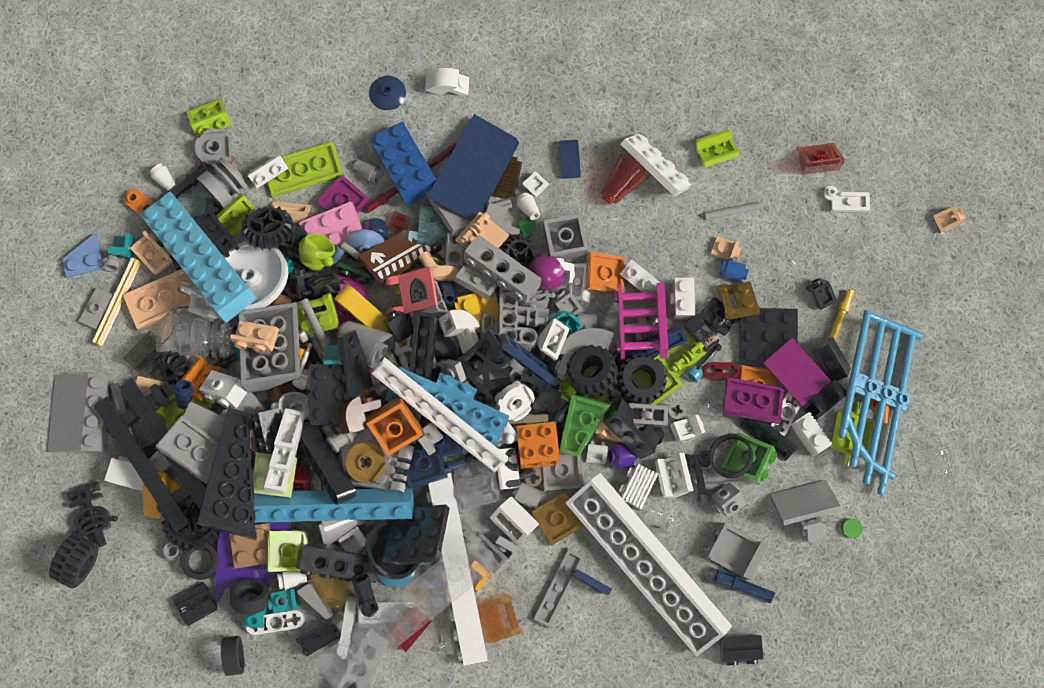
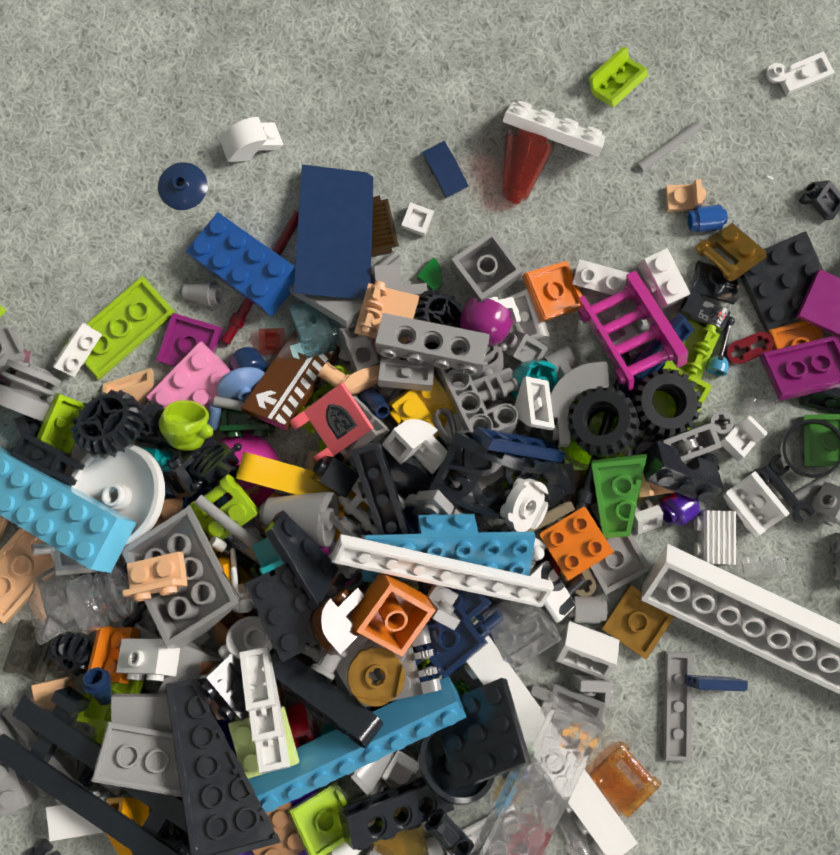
camera: 20 degrees left, 5 degrees up
(528, 205) = (421, 249): white cone -> none
(820, 158) = (746, 35): clear red slope -> none

